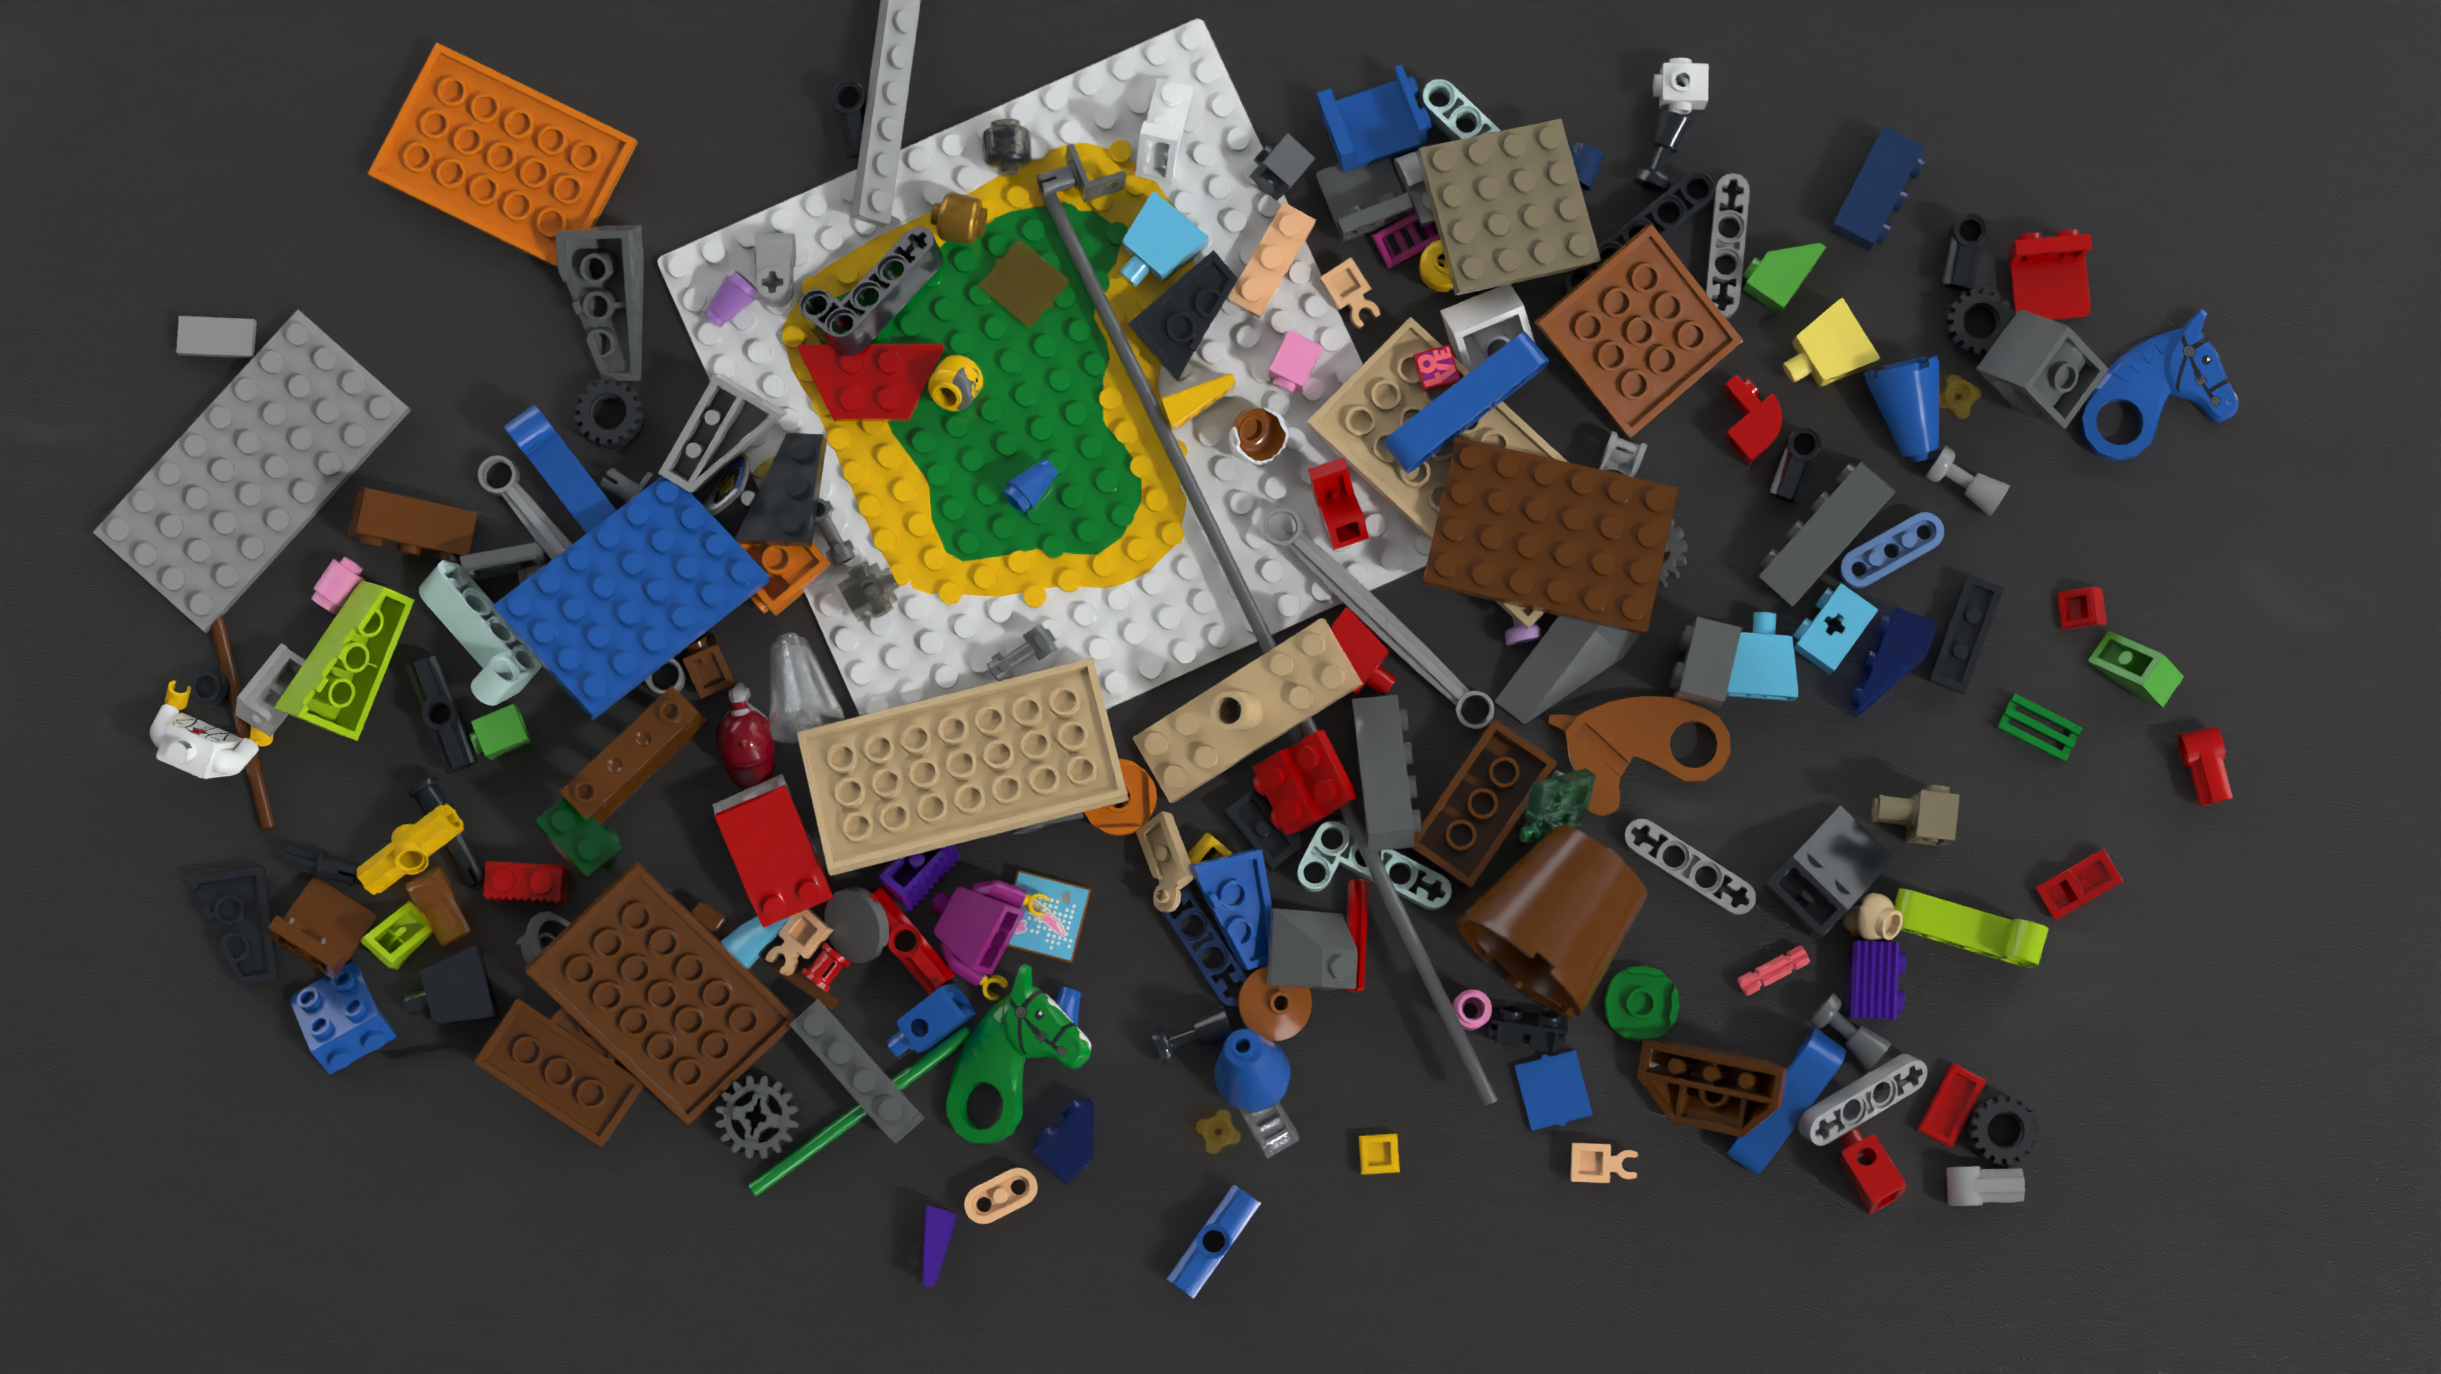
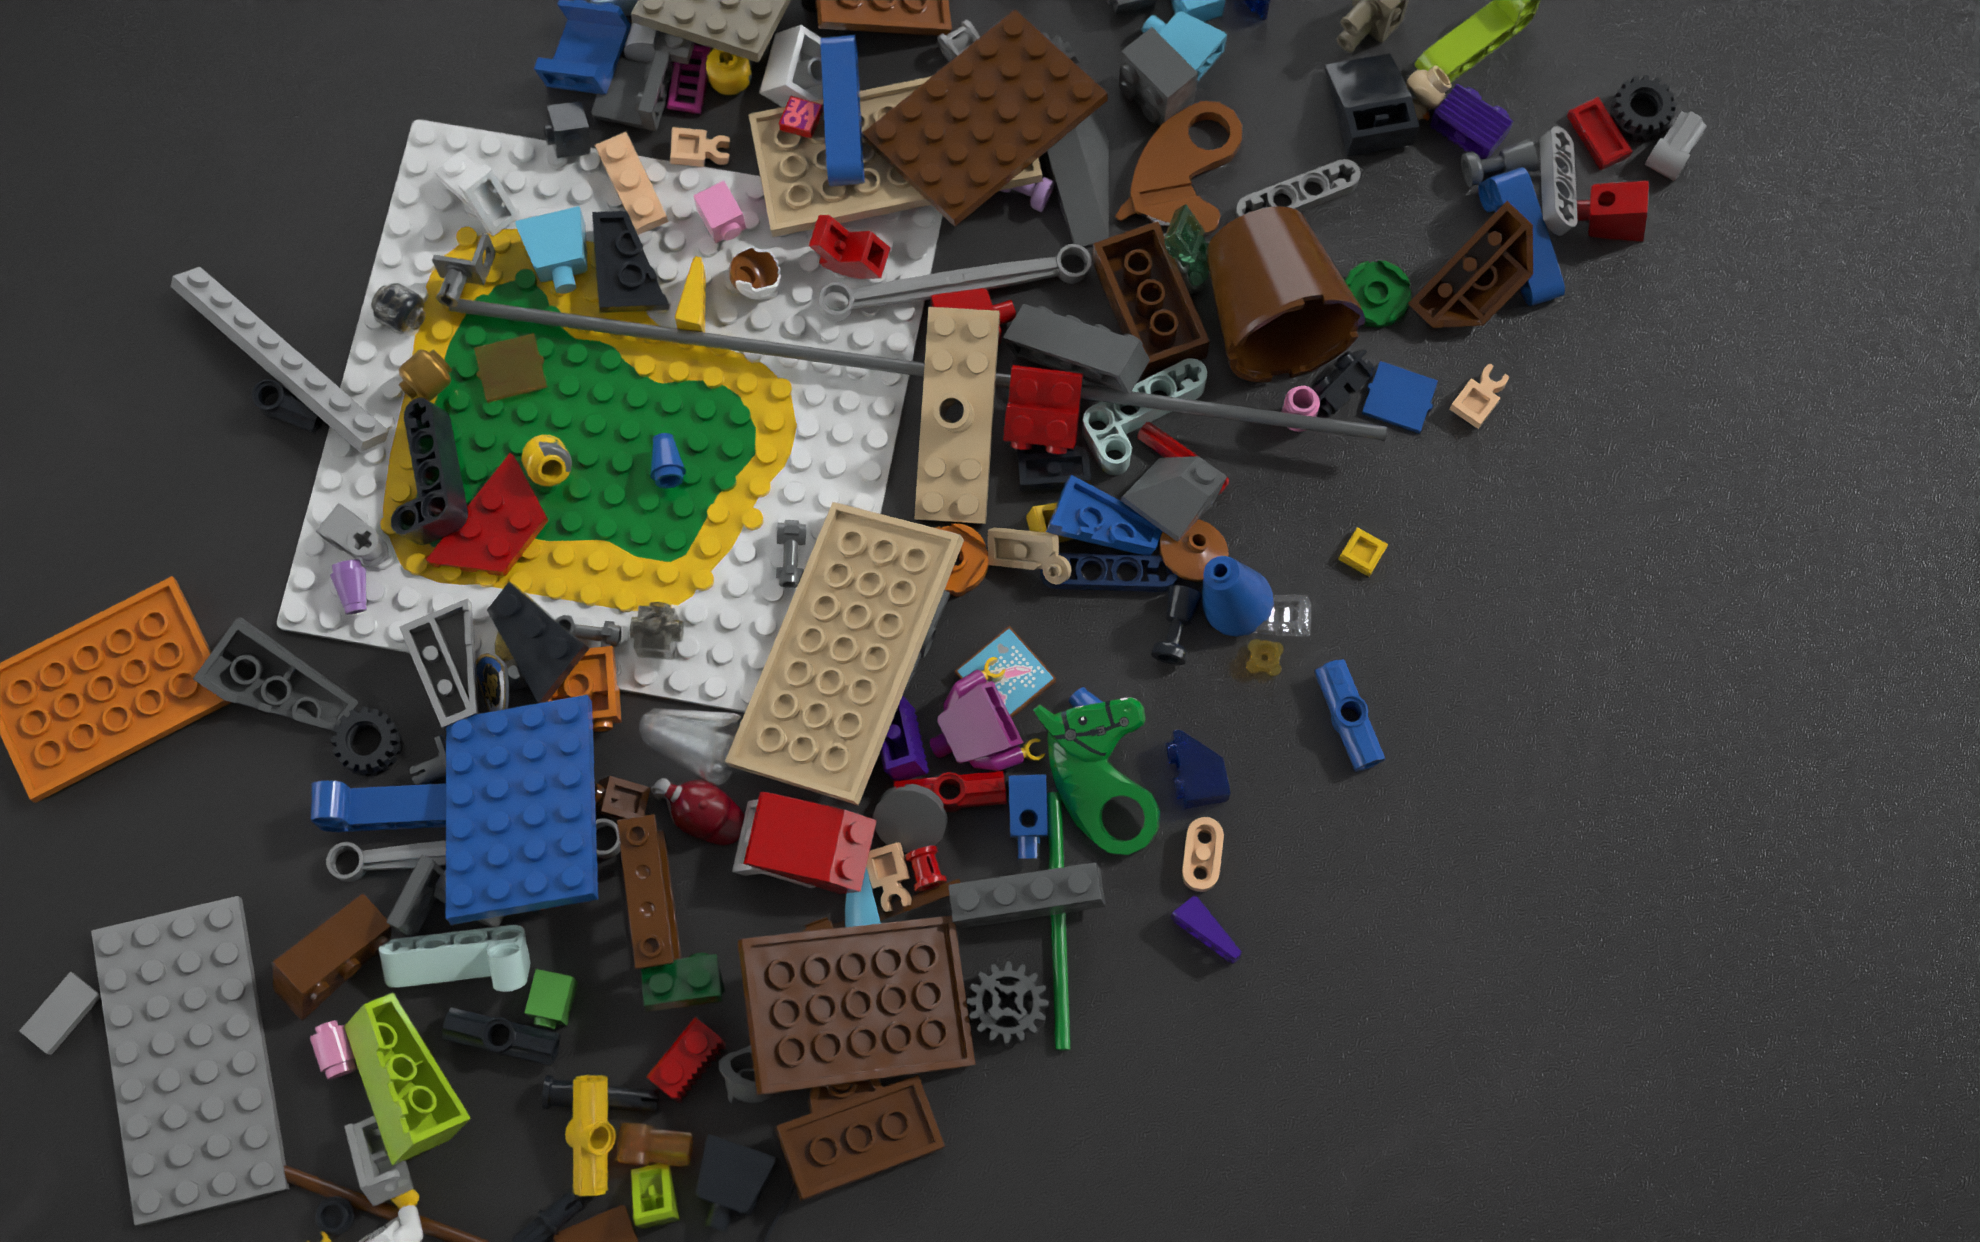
camera: 55 degrees left, 10 degrees down
(1773, 970) = (1415, 187): coral axle -> none

